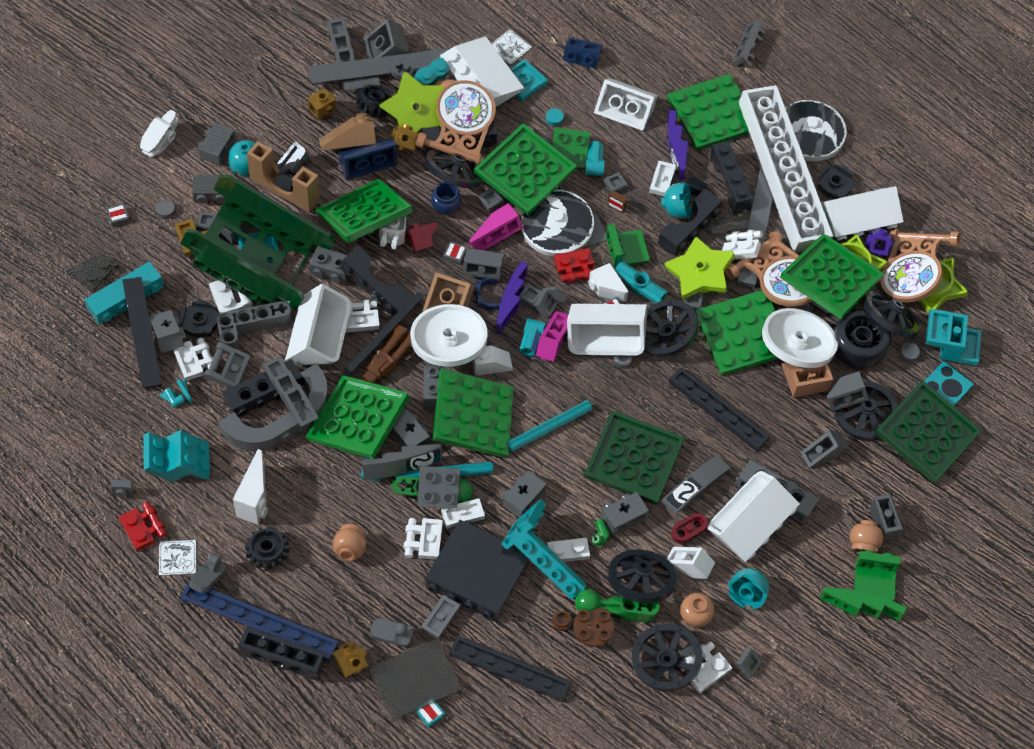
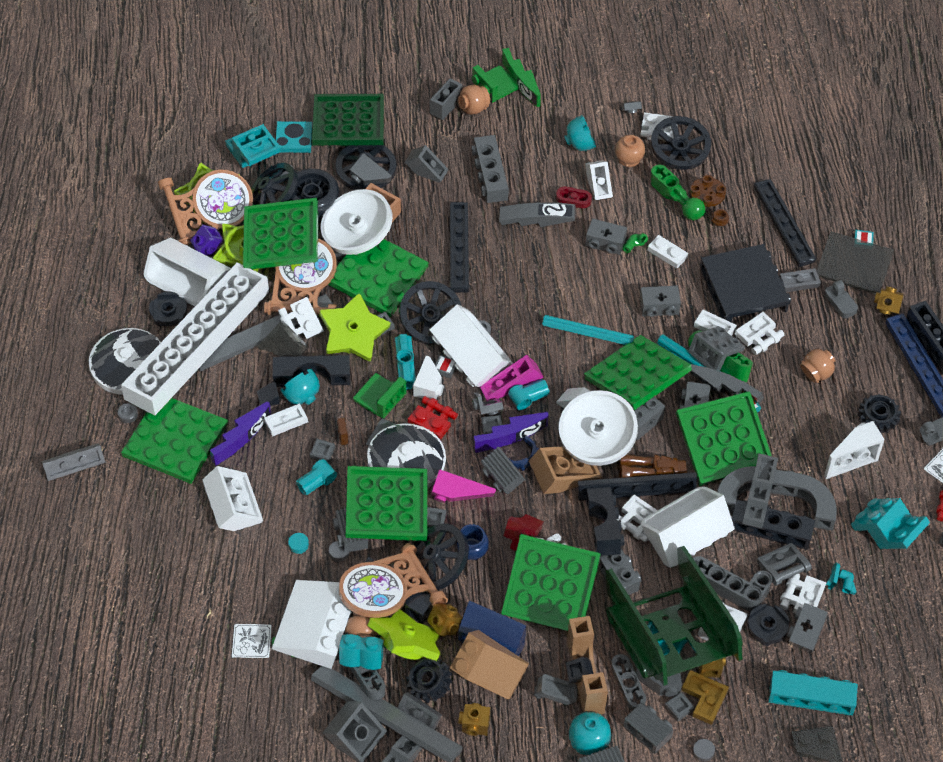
camera: 130 degrees left, 5 degrees down
(141, 332) = (829, 643): black tile -> none
(455, 252) = (509, 505): tile -> none
(530, 79) = (275, 596): teal tile -> none
(540, 554) = (692, 265): teal bracket -> none
(572, 145) = (315, 504): green bracket -> none
(582, 52) = (204, 574): dark blue bracket -> none
(634, 457) = (556, 263): dark green plate -> none
(642, 572) = (643, 193): black wheel -> none
(738, 191) = (226, 386): black arch -> none
(753, 515) = (531, 162): white windscreen -> none

